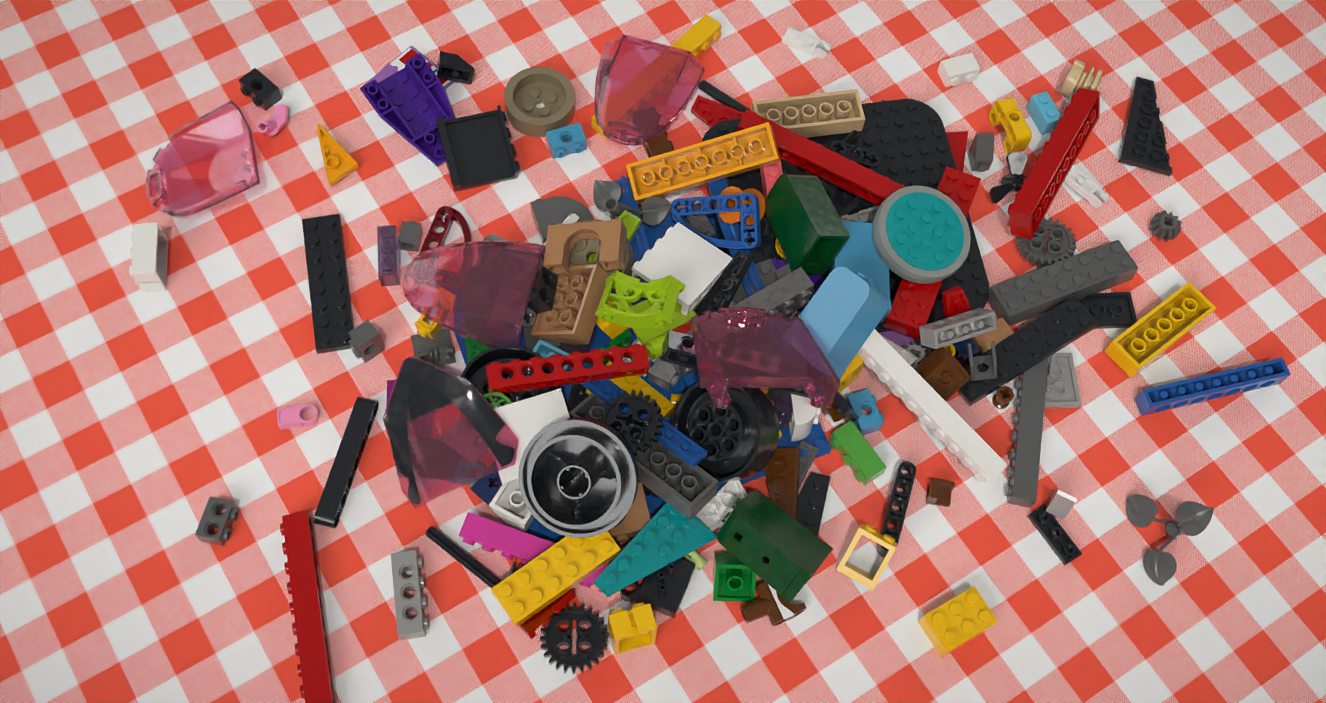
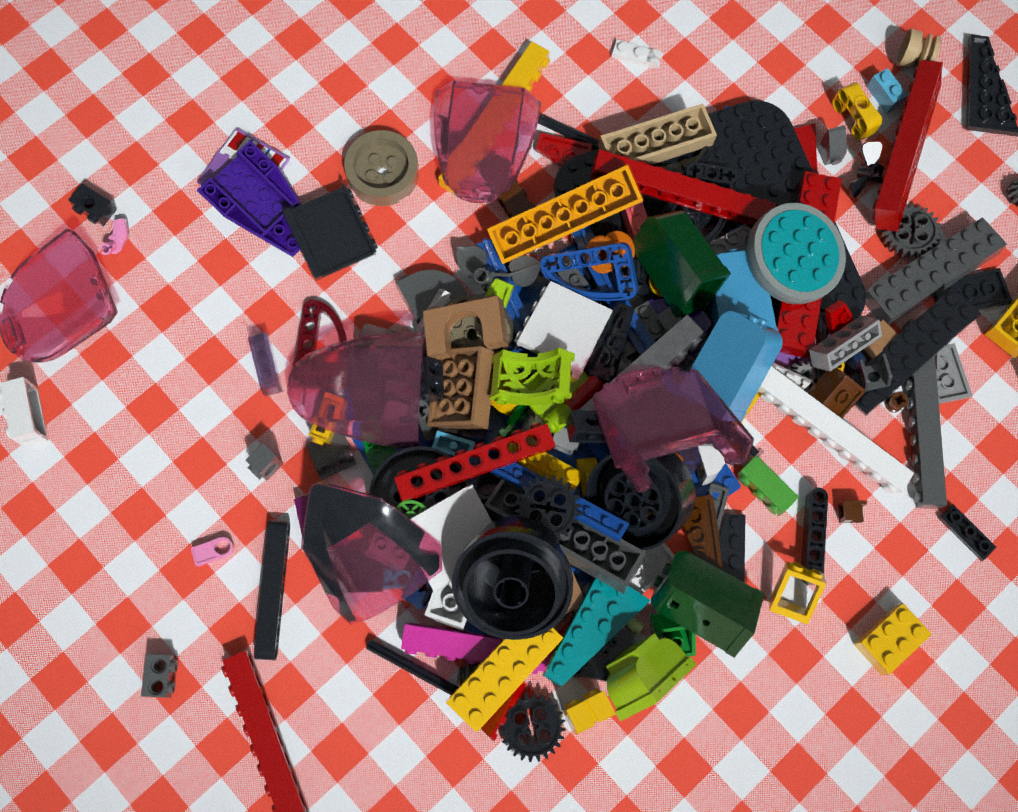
camera: 10 degrees left, 10 degrees up
(328, 283) = (210, 403): black plate -> none
(336, 160) = (189, 269): light orange wing -> none
(407, 627) = (348, 685): light grey brick -> none
(410, 236) = (282, 338): dark grey brick -> none
(454, 68) = (286, 146): black slope -> none
(572, 134) = (422, 198): dark azure brick -> none
(696, 599) = (645, 674): none -> lime container
(770, 604) = (713, 657): reddish brown connector -> none
(865, 401) = (768, 431): dark azure brick -> none
(958, 70) = (794, 58): white brick -> none
(1060, 503) = (970, 502): light grey slope -> none
(1086, 187) = (940, 164): white hinge -> none

